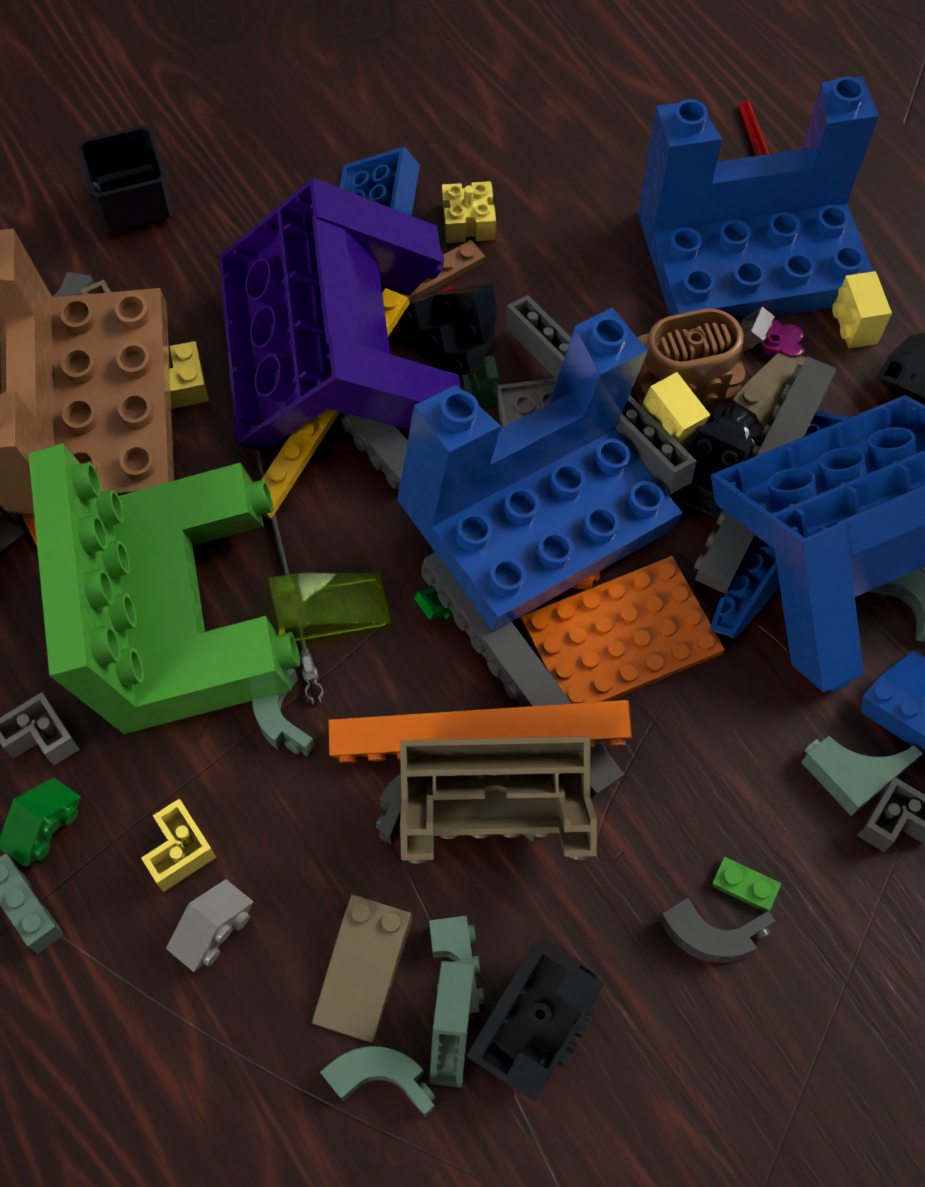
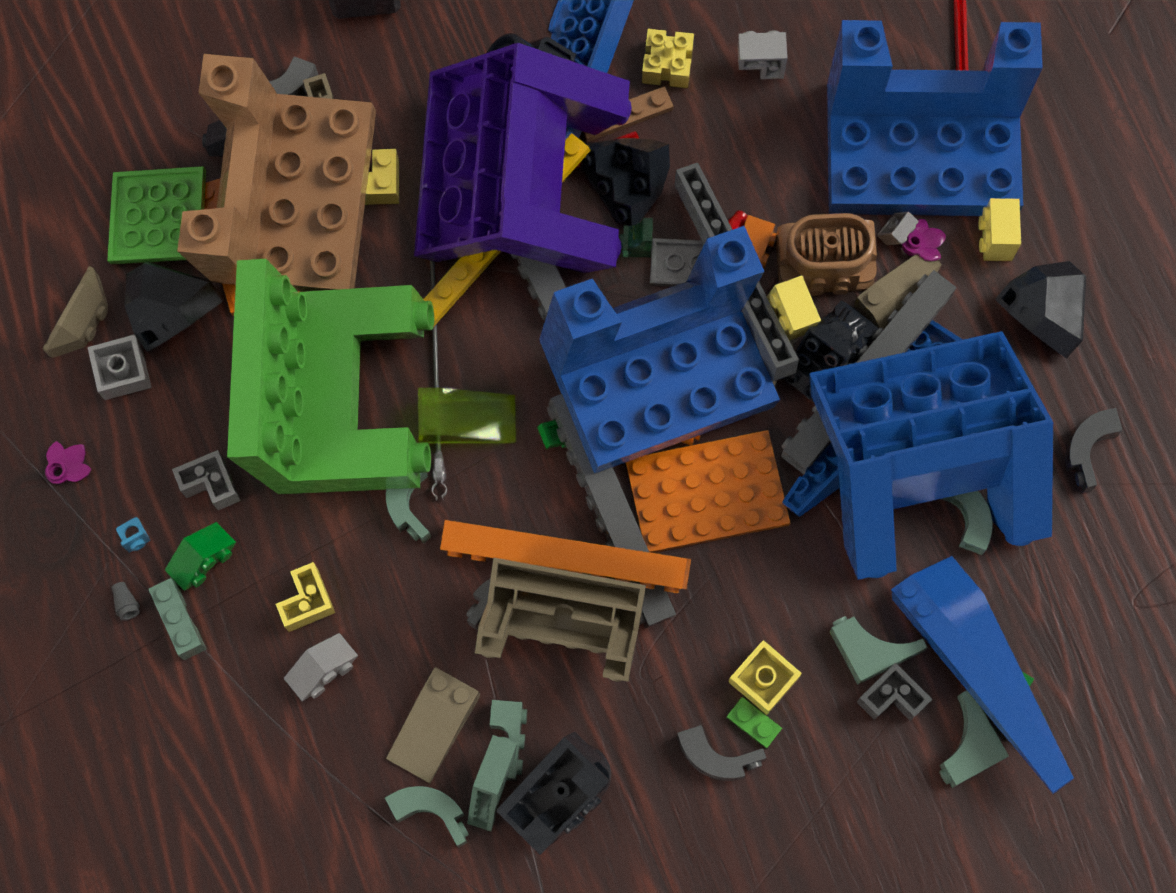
camera: 15 degrees right, 10 degrees up
(570, 186) = (763, 52): none -> light grey brick
(747, 827) = (764, 677): none -> light yellow brick

